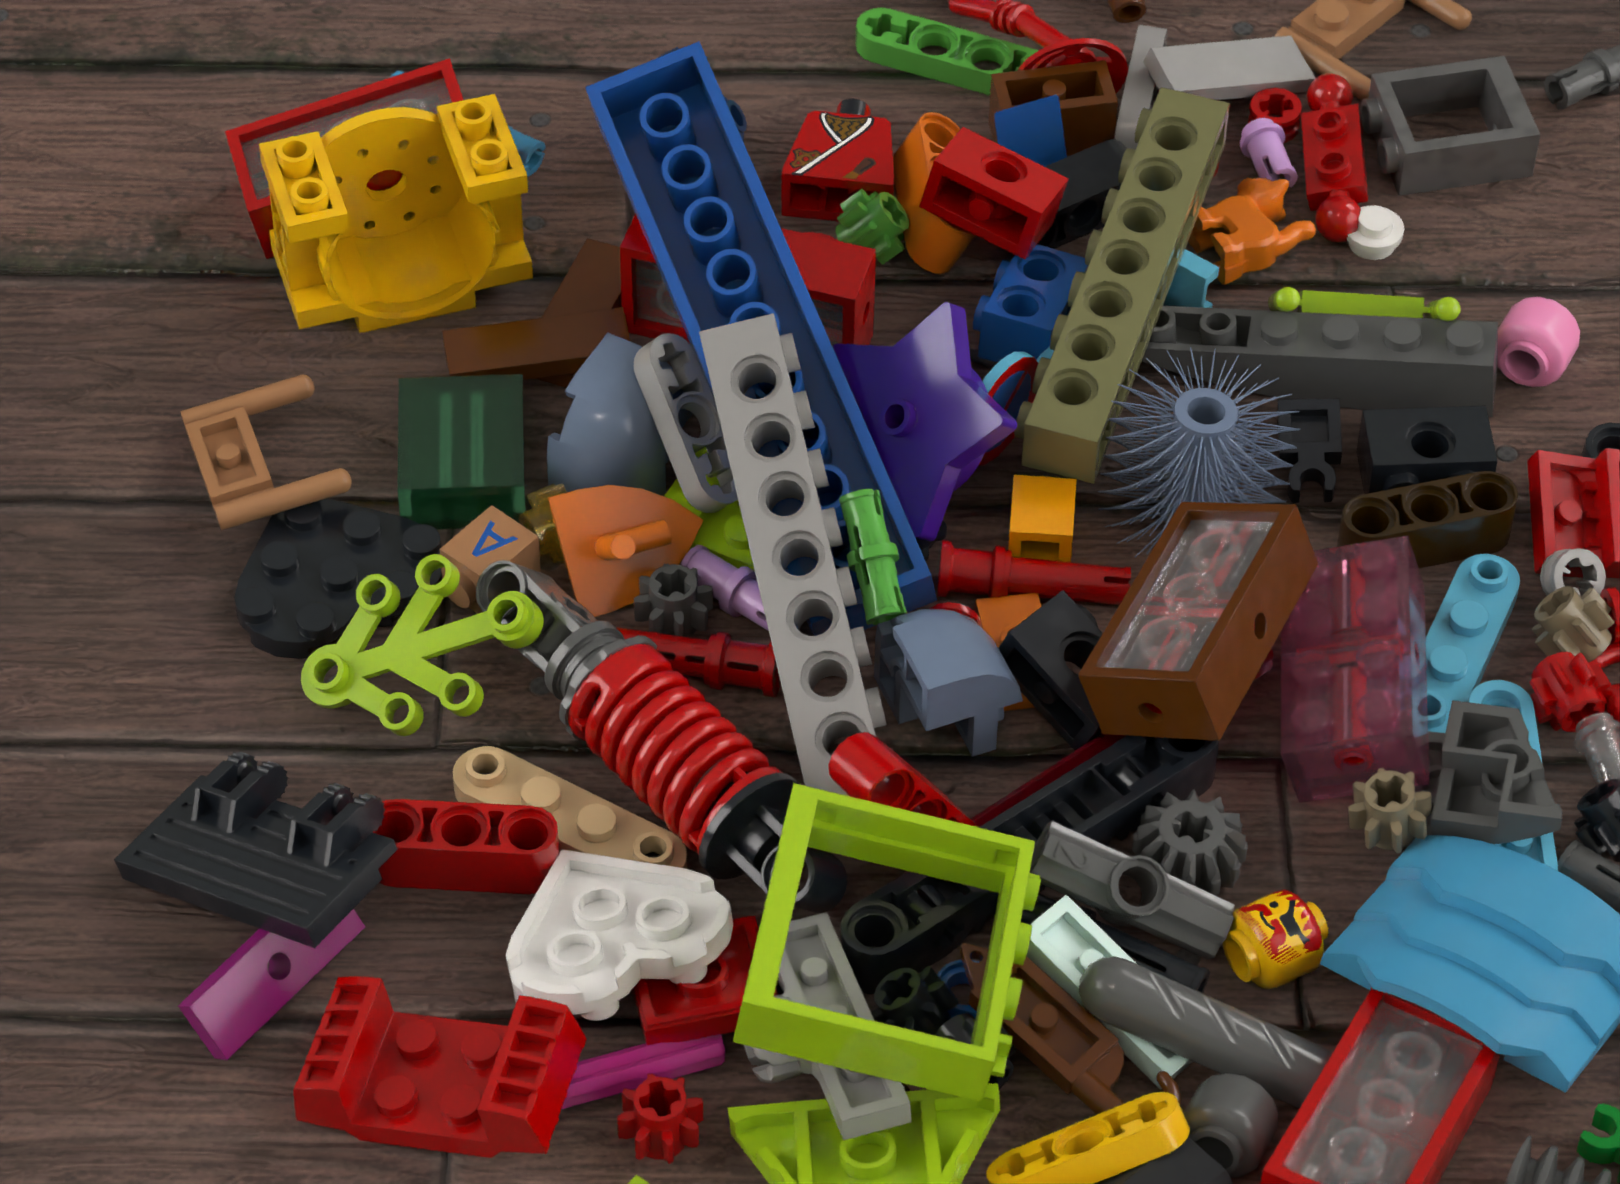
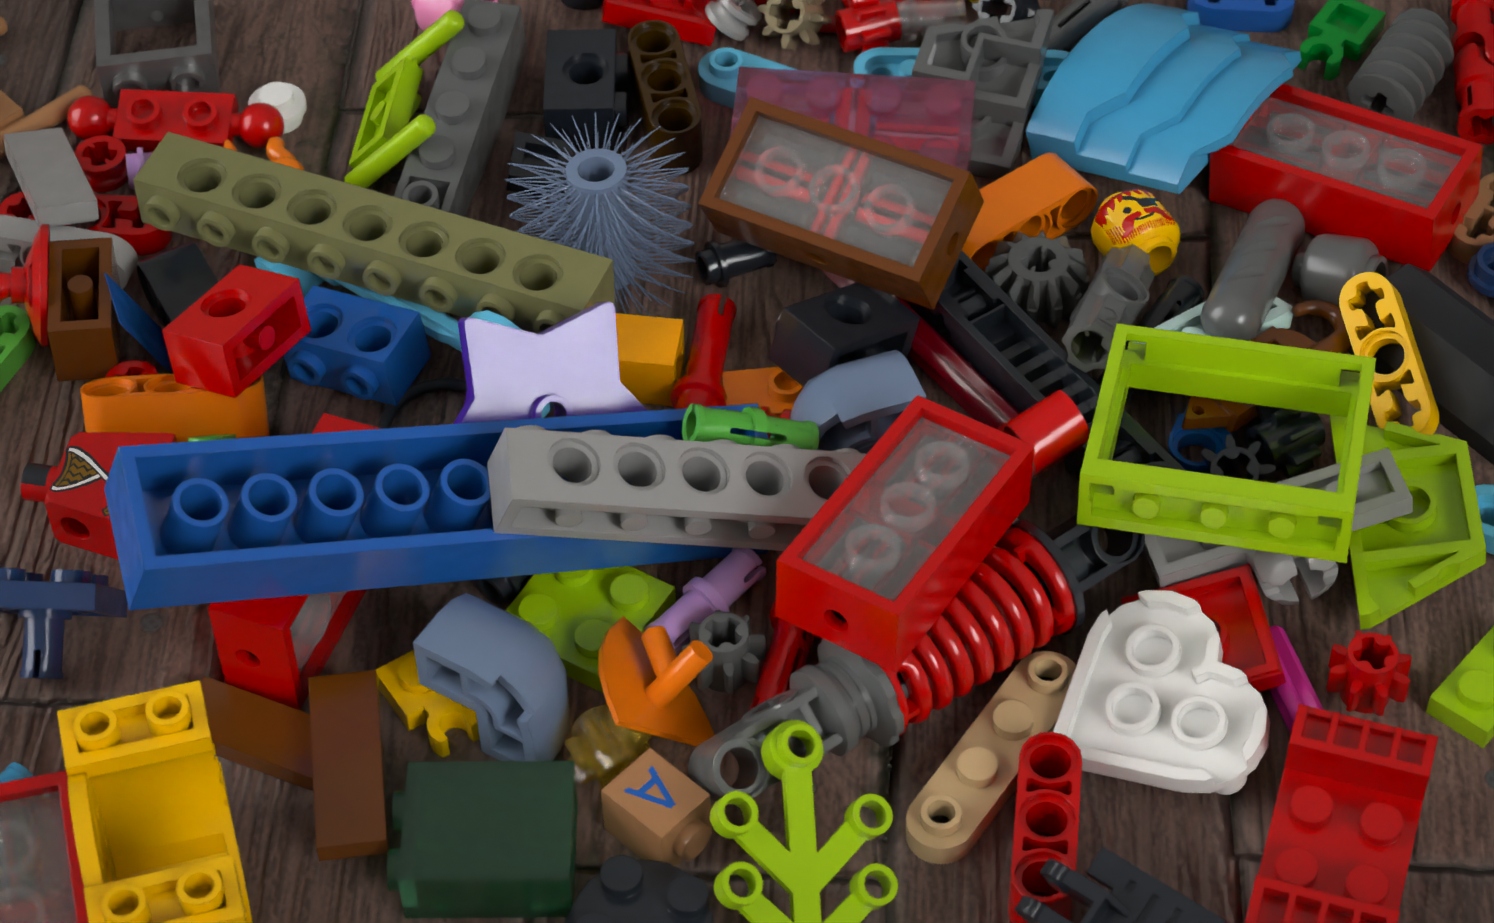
camera: 85 degrees left, 0 degrees up
(698, 399) = (530, 591): light grey beam -> none
(726, 656) = (904, 532): none -> brick
(1291, 828) = (1029, 199): none -> orange beam
(1390, 810) = (1016, 131): dark tan gear -> none

